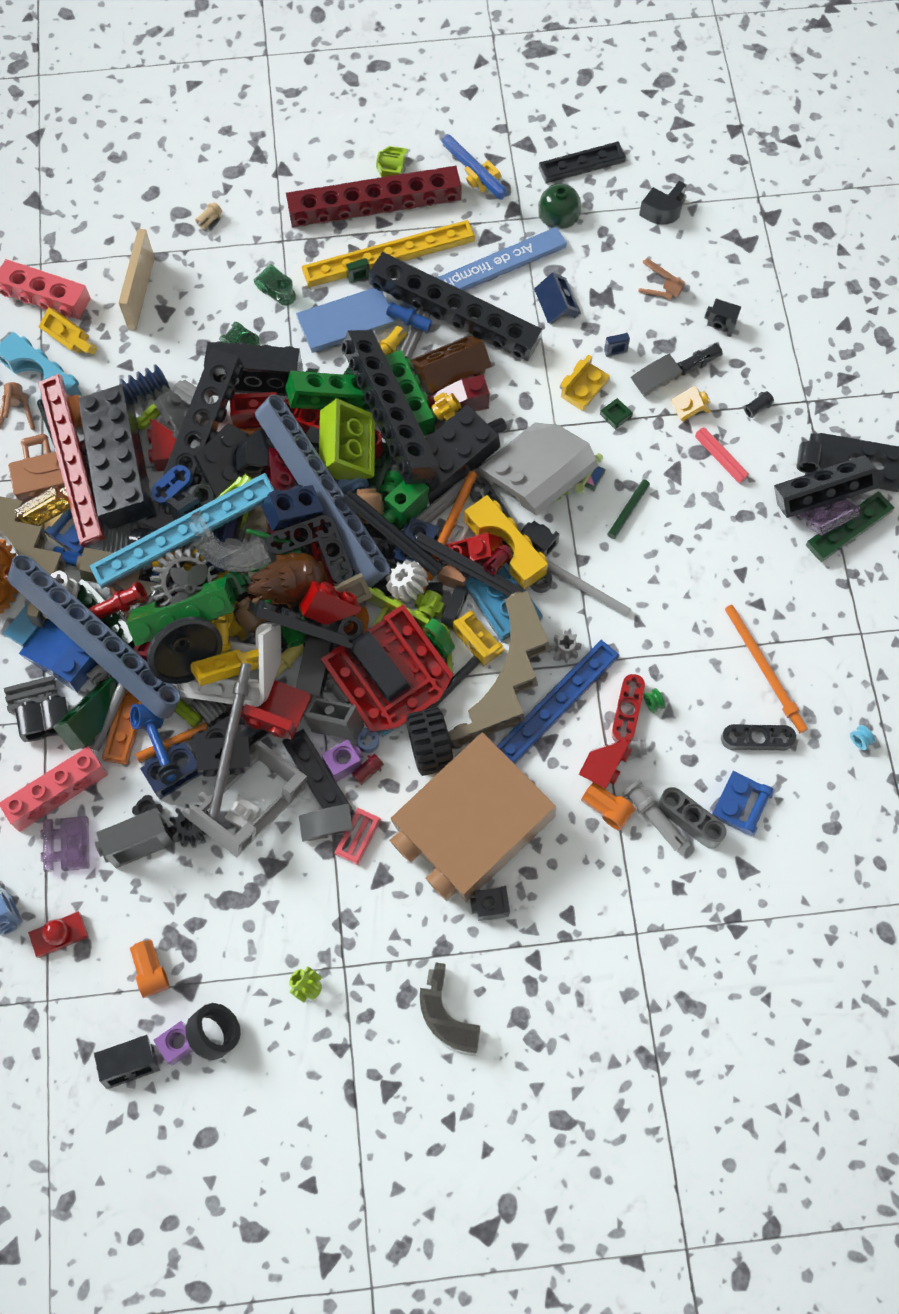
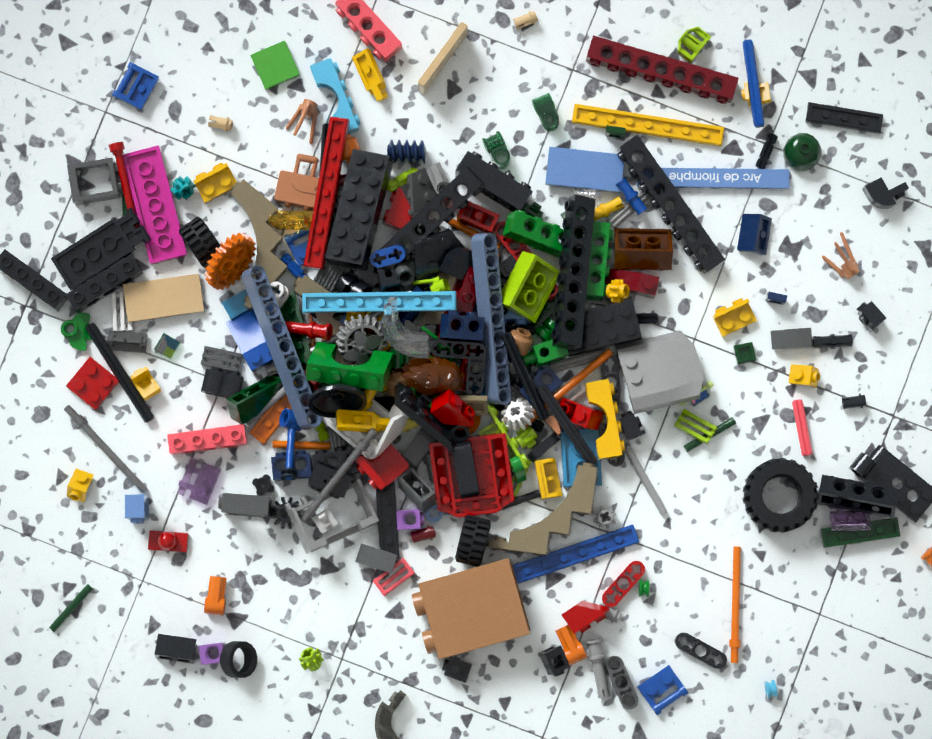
camera: 25 degrees right, 15 degrees up
(498, 559) = (589, 433): dark red pin -> none
(523, 221) = (766, 151): none -> black axle
(600, 832) = (561, 663): none -> black brick
(609, 502) = (678, 425): none -> lime tile
(749, 500) = (806, 495): none -> black tyre

